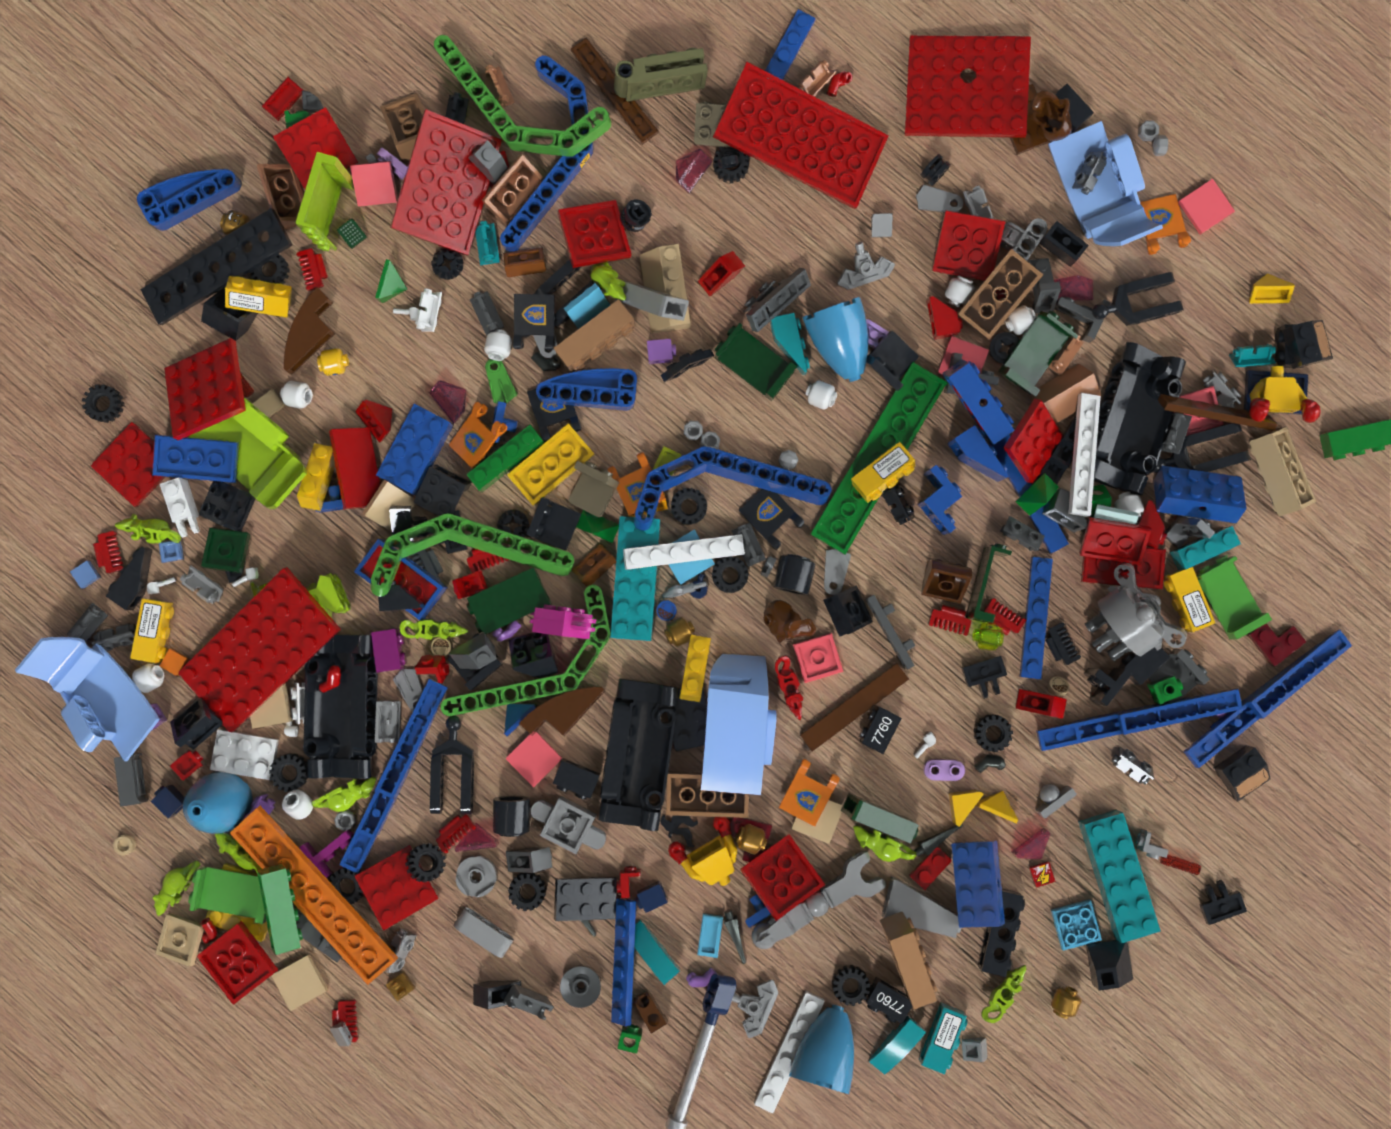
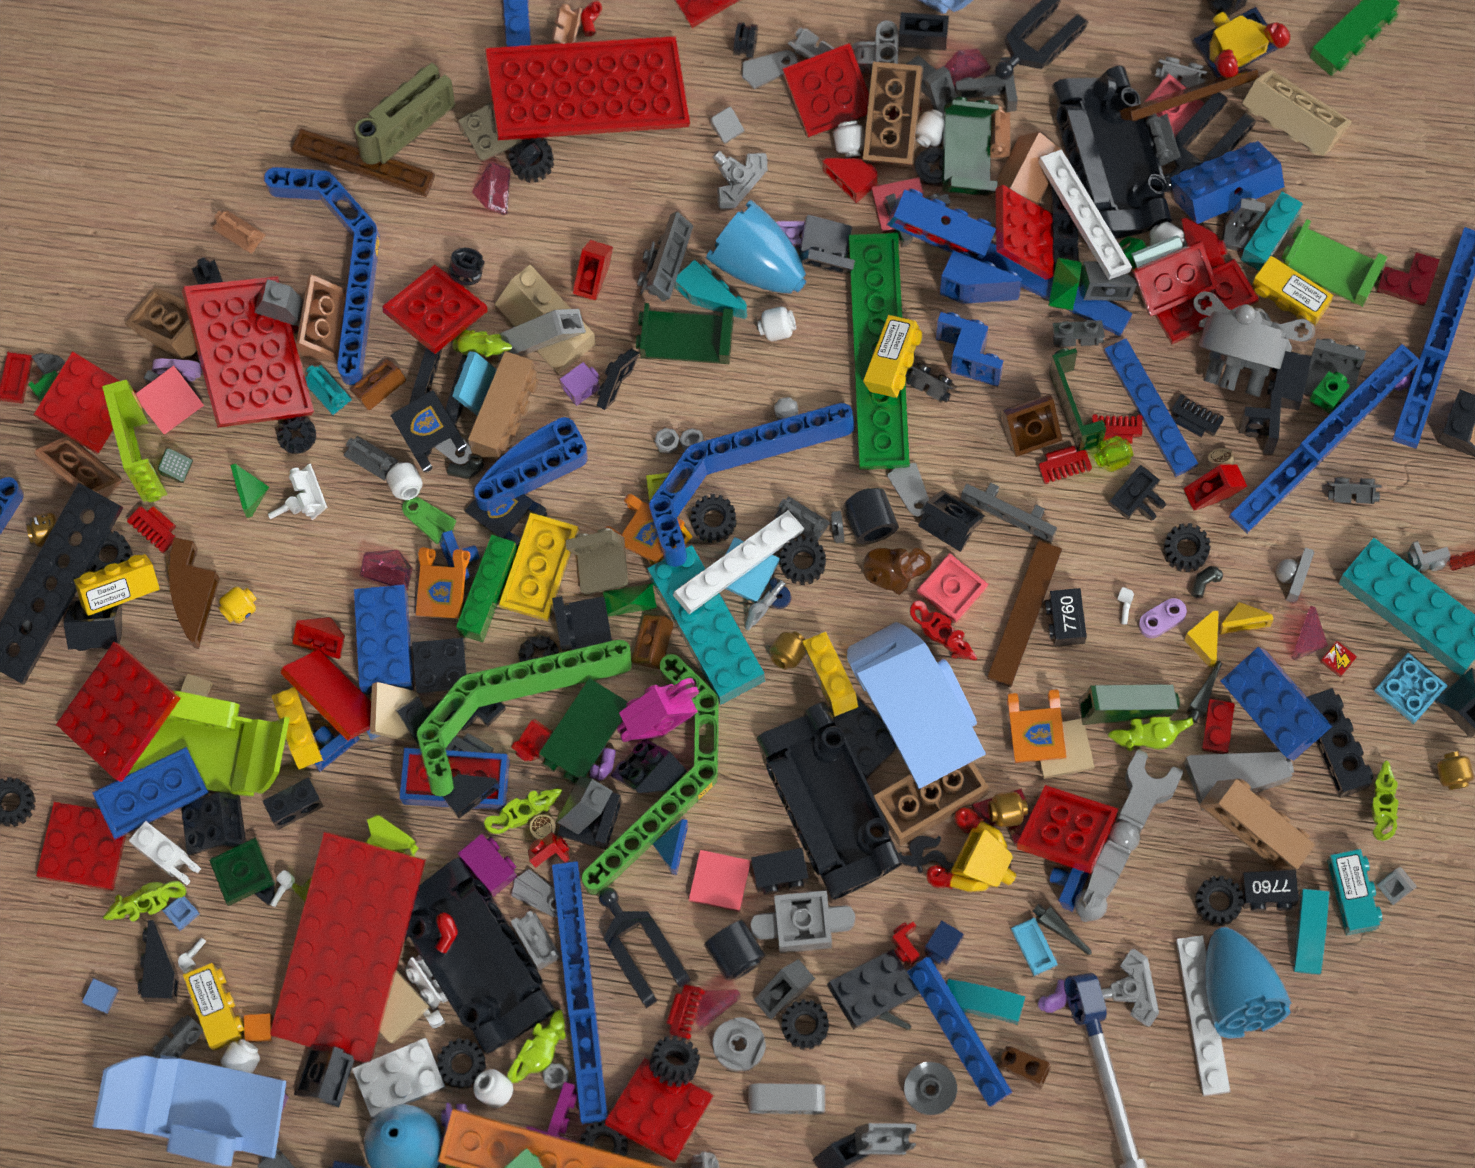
camera: 25 degrees left, 15 degrees down
(88, 623) = (136, 1039): dark grey hinge -> none
(104, 555) = (107, 962): red piece -> none
(187, 764) = (342, 1124): red bracket -> none
(209, 590) = (240, 921): light grey hinge -> none
(285, 525) = (293, 803): none -> black brick
(296, 394) = (218, 662): white head -> none
(479, 556) = (524, 704): red piece -> none
(509, 129) = (366, 198): bright green beam -> none
(563, 710) = (717, 808): reddish brown slope -> none
(633, 1032) = (1021, 1101): green bracket -> none
(666, 610) = (760, 639): blue tile -> none
(768, 513) = (802, 475): black flag -> none
(1246, 357) = (1179, 27): teal hinge -> none

